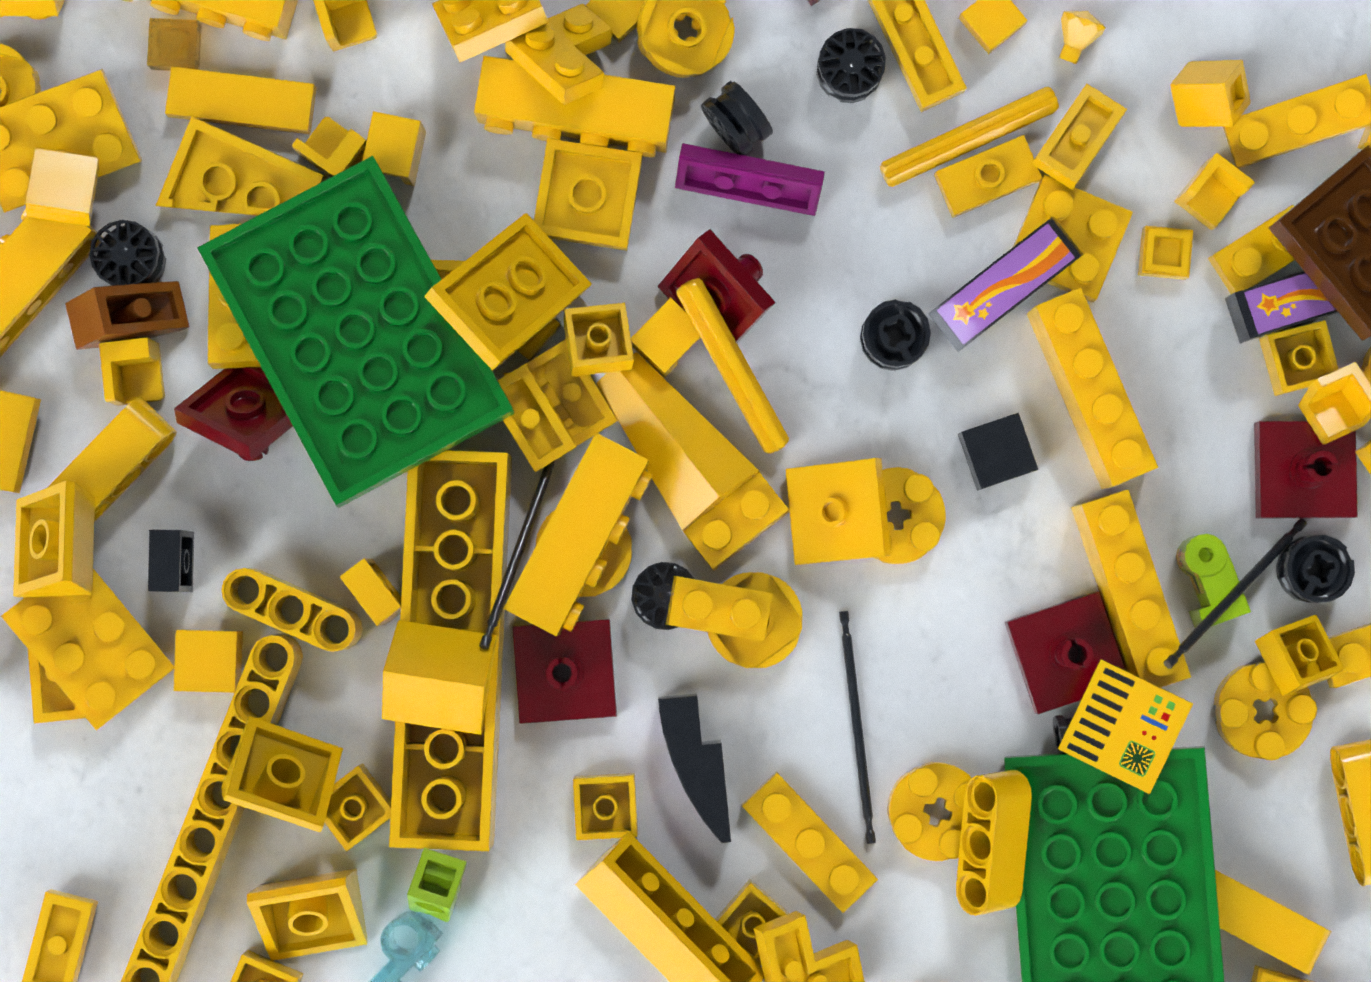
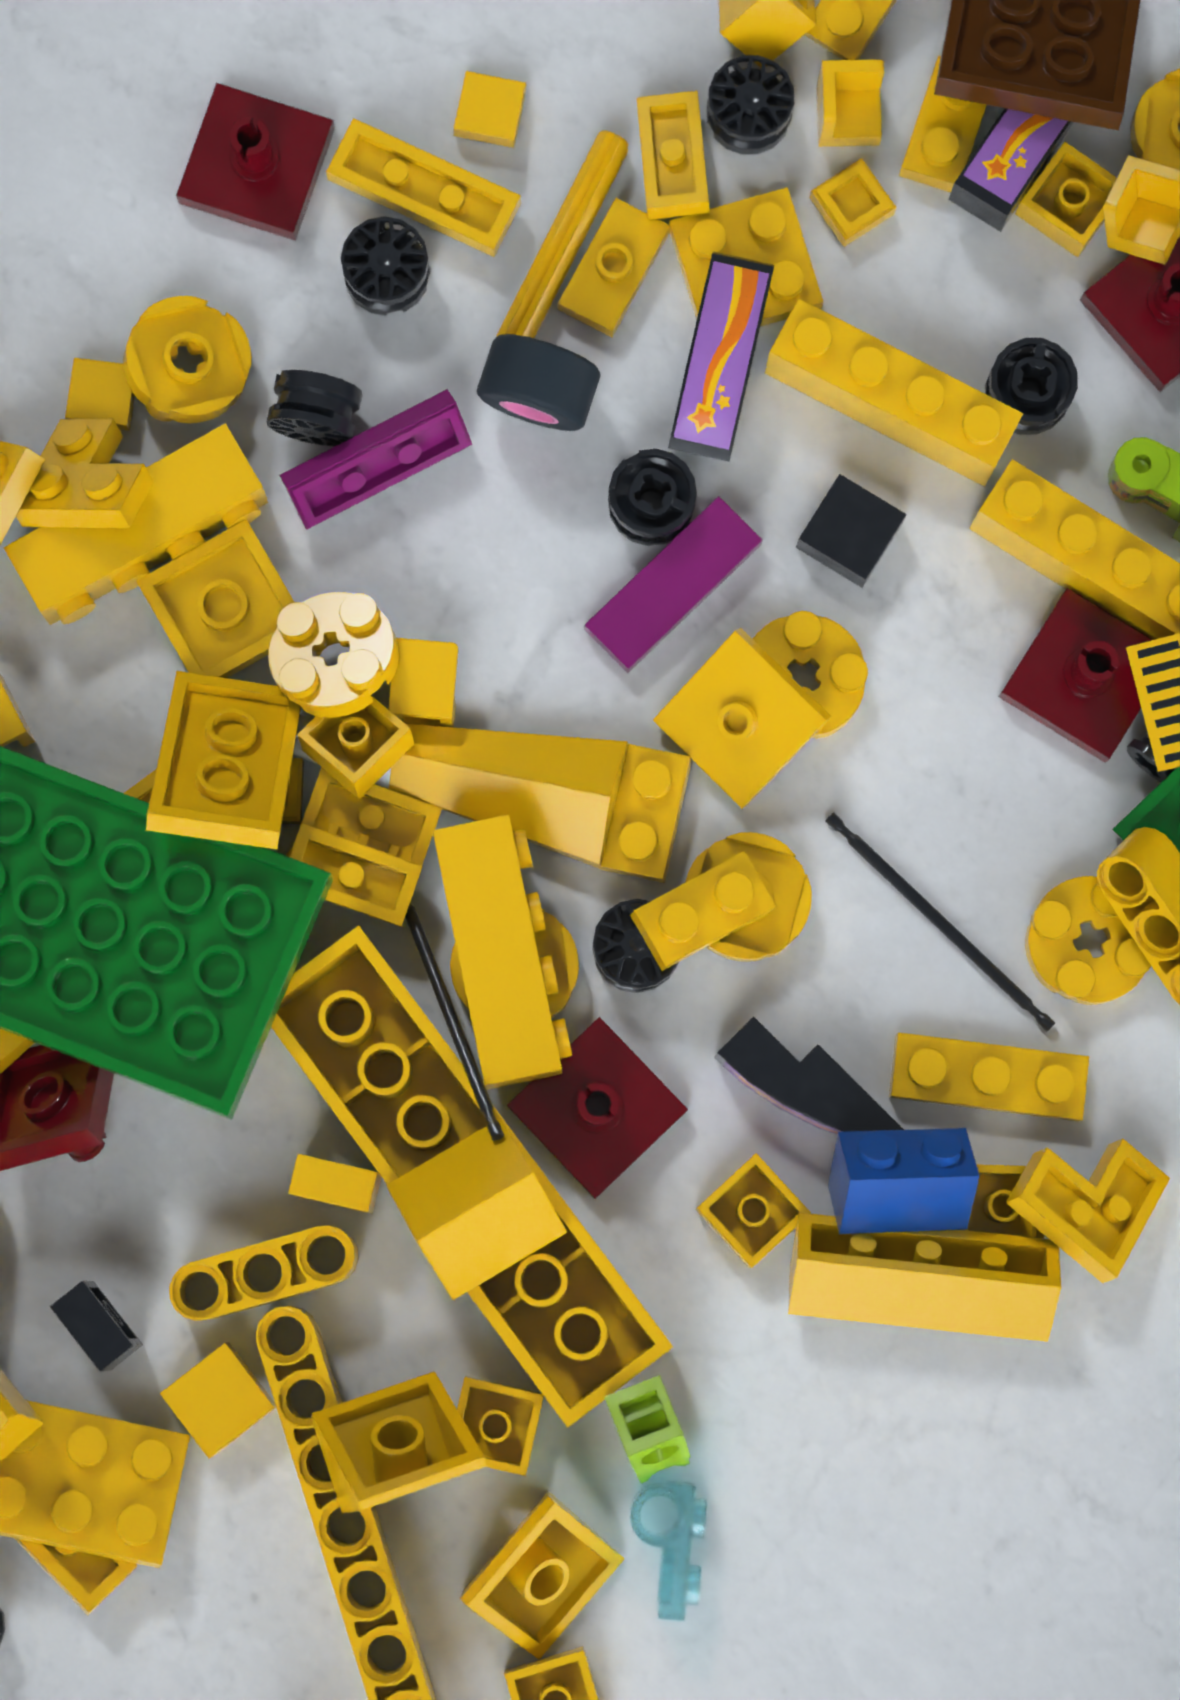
camera: 40 degrees left, 5 degrees down
(623, 251) = (311, 627): none -> plate
(704, 864) = (903, 1180): none -> blue brick
(728, 280) = (441, 591): dark red tile -> none
(732, 365) = (514, 656): yellow axle -> none
(865, 397) = (673, 584): none -> magenta tile
(882, 211) = (538, 382): none -> black wheel
(1079, 31) = (587, 54): yellow rock -> none
(1152, 143) = (750, 106): none -> black wheel
(1182, 451) = (1035, 380): none -> black wheel

